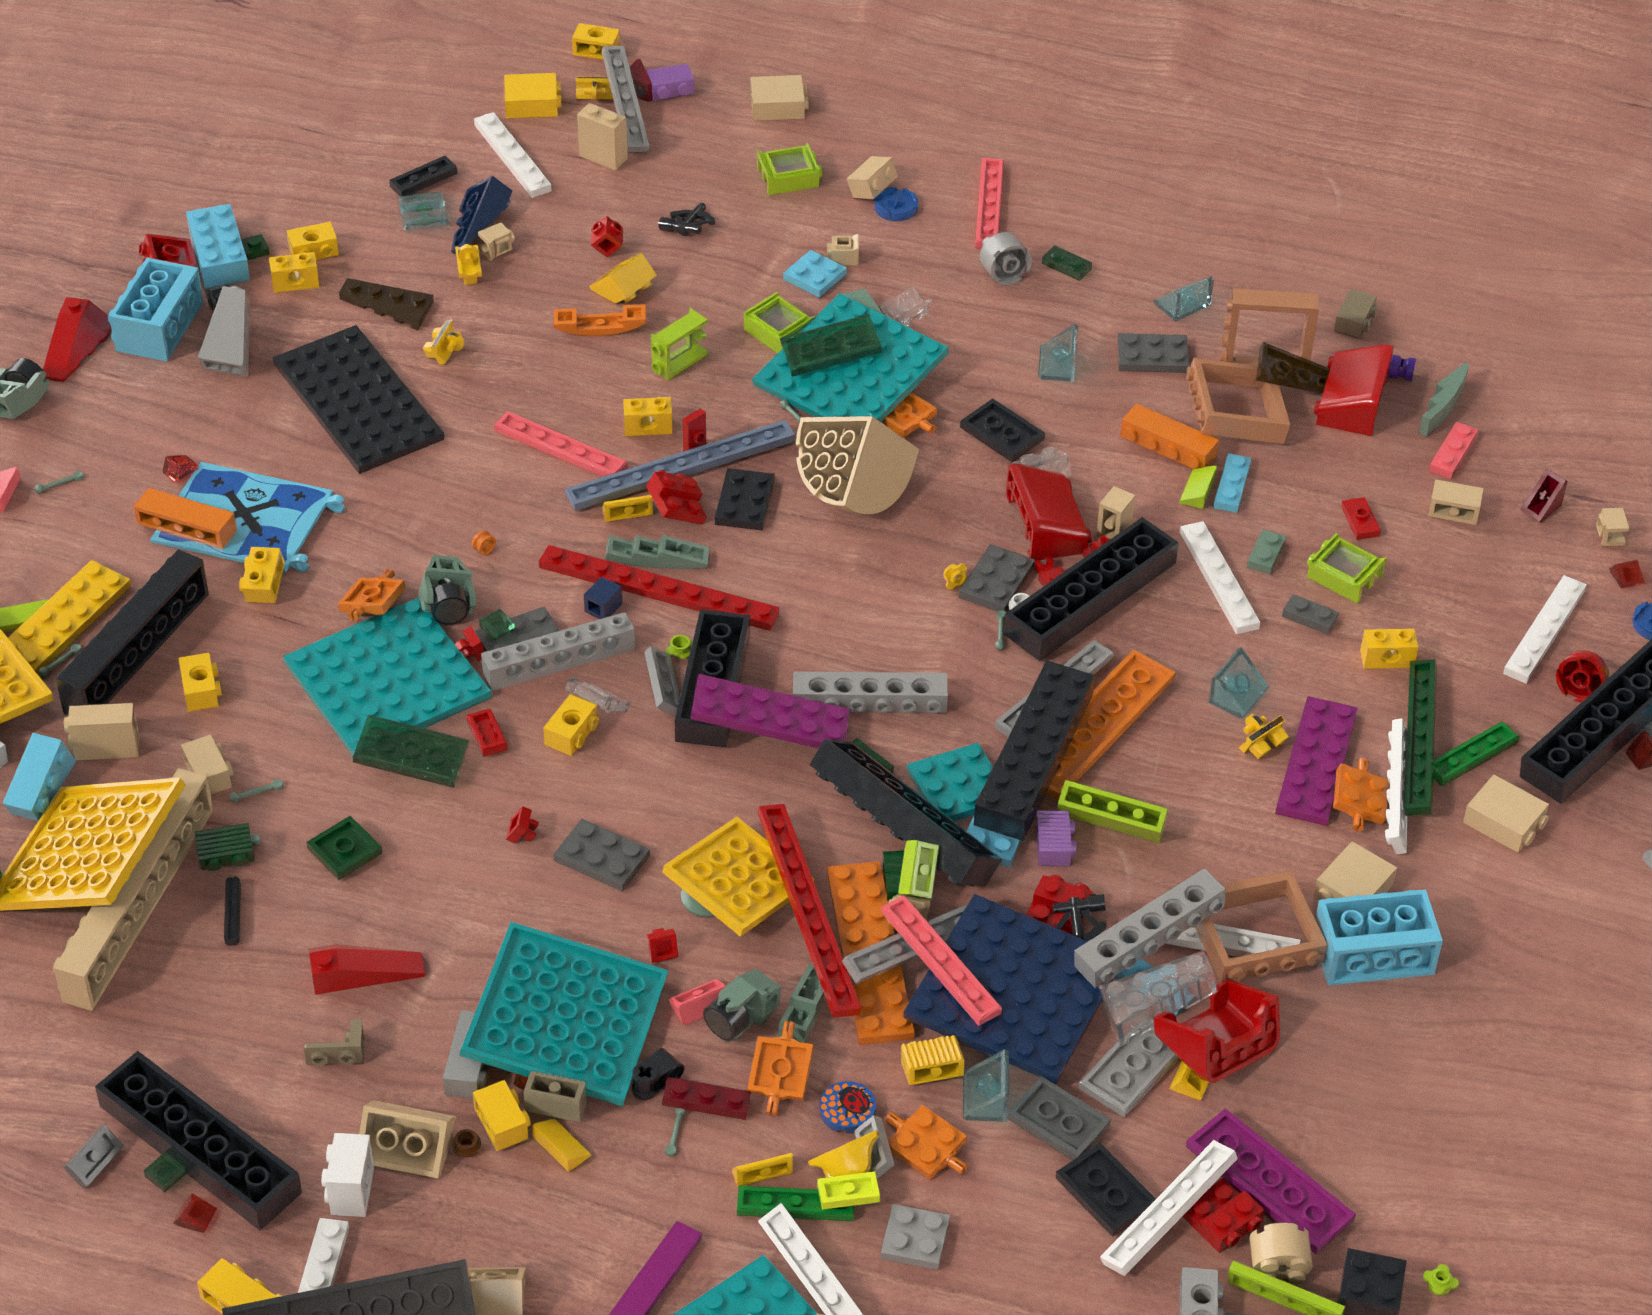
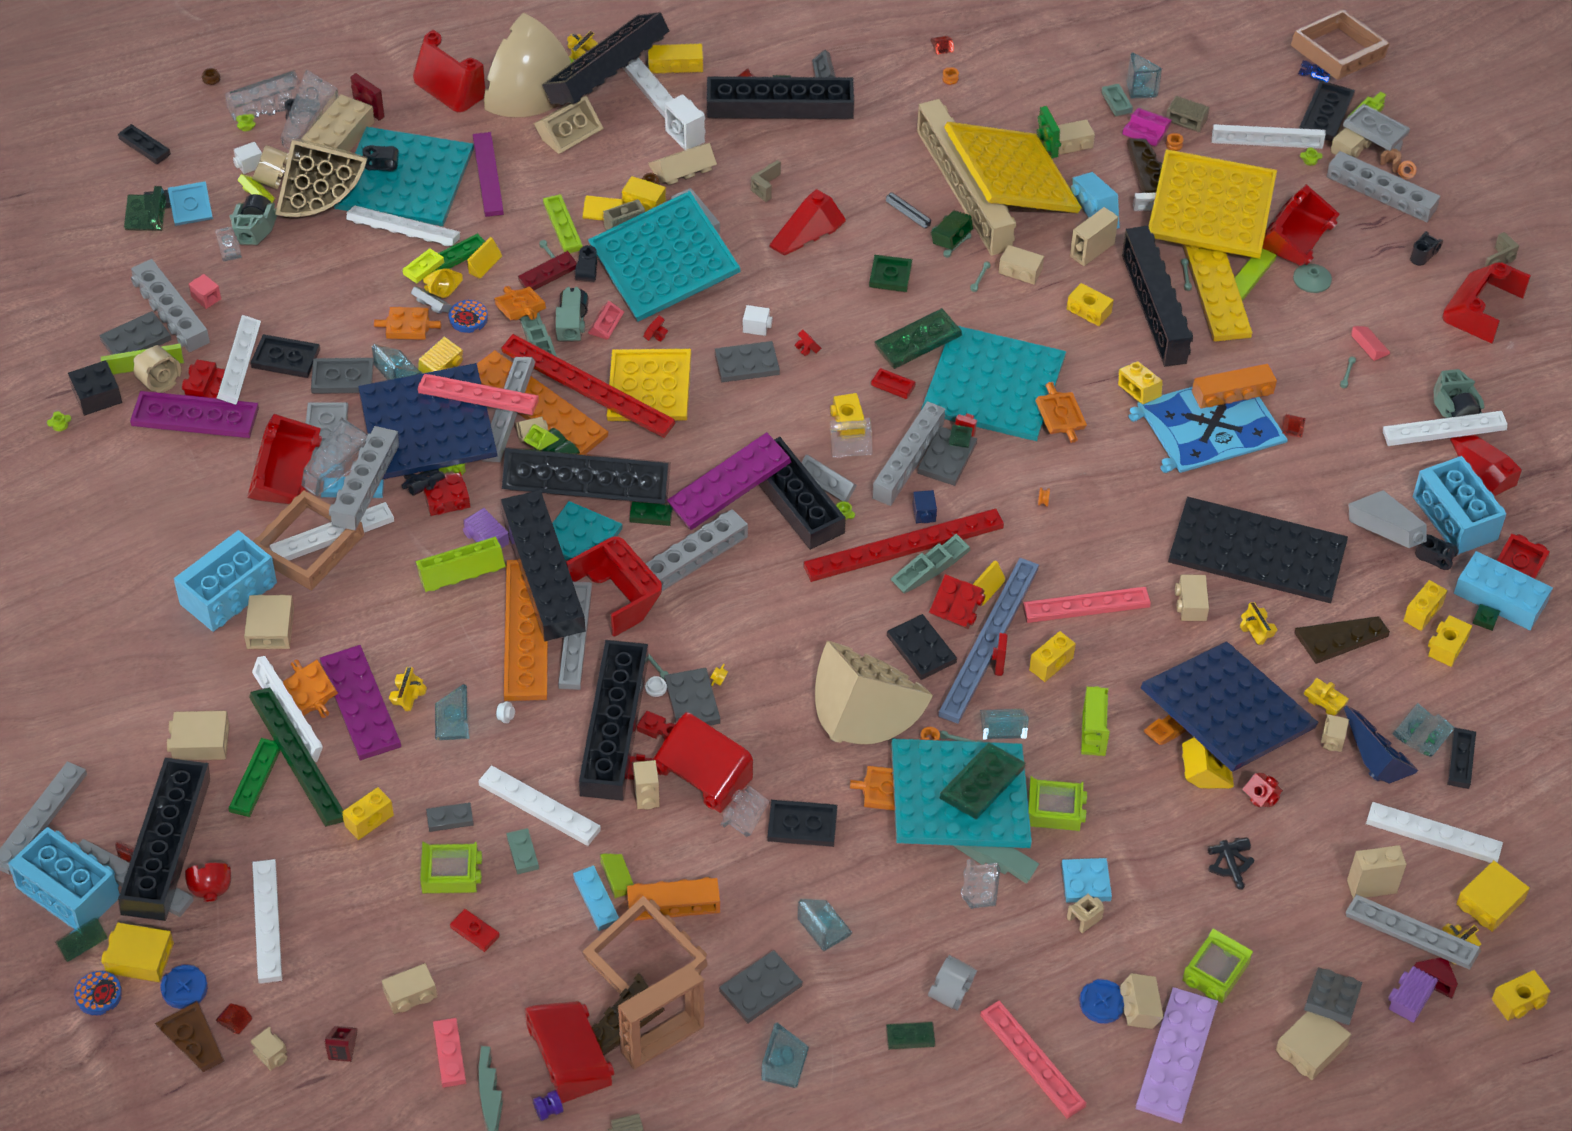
camera: 140 degrees right, 5 degrees up
(67, 377) = (1444, 428): none -> white plate
(447, 591) = (1030, 452): piece -> none
(469, 389) = (1192, 597): none -> tan brick
(545, 884) = (756, 320): none -> white brick
(557, 292) = (1229, 706): none -> dark blue plate
(623, 1160) = (562, 223): none -> lime tile
(731, 103) = (1333, 996): none -> dark grey plate
(748, 397) = (1004, 723): none -> clear light blue slope
(897, 141) = (1176, 1055): none -> lavender plate
(915, 1237) = (372, 278): light grey plate -> none
(971, 666) = (619, 562): none -> red windscreen
(1184, 662) = (505, 712): none -> white plate

